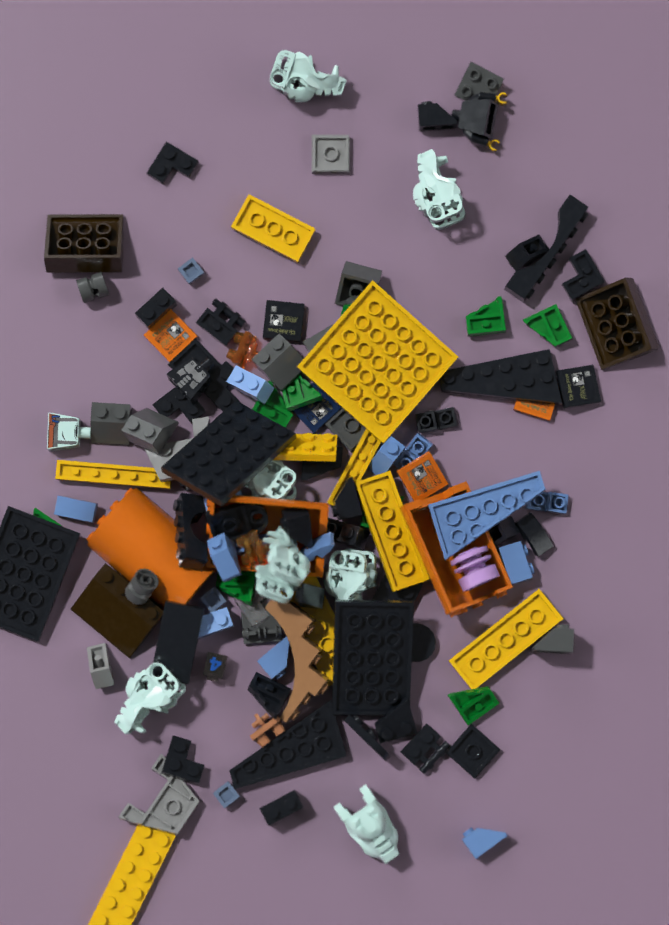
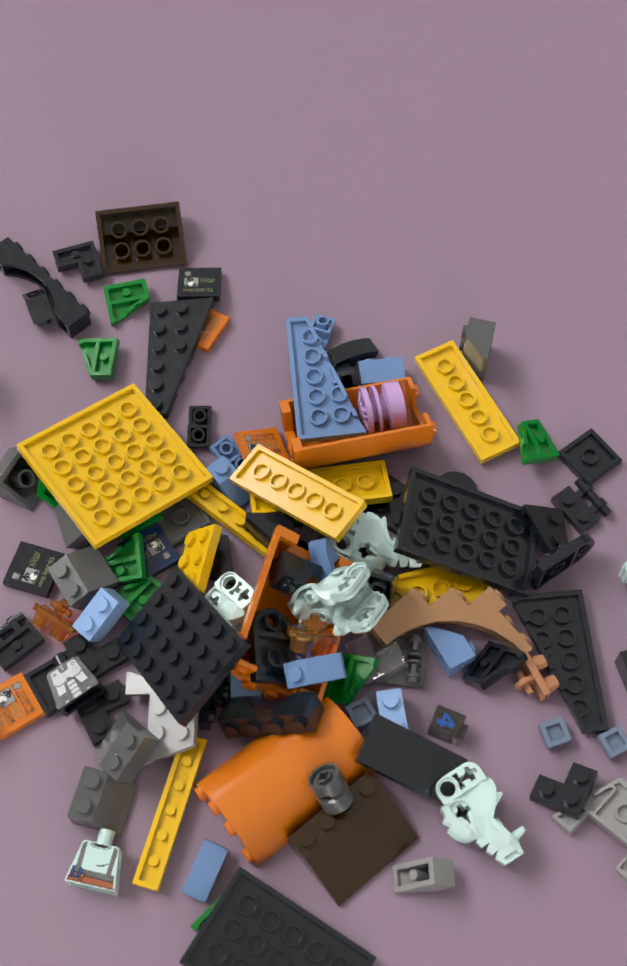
camera: 80 degrees left, 20 degrees down
(225, 748) = (554, 733): none -> sand blue plate
(373, 514) = (298, 493): none -> yellow plate

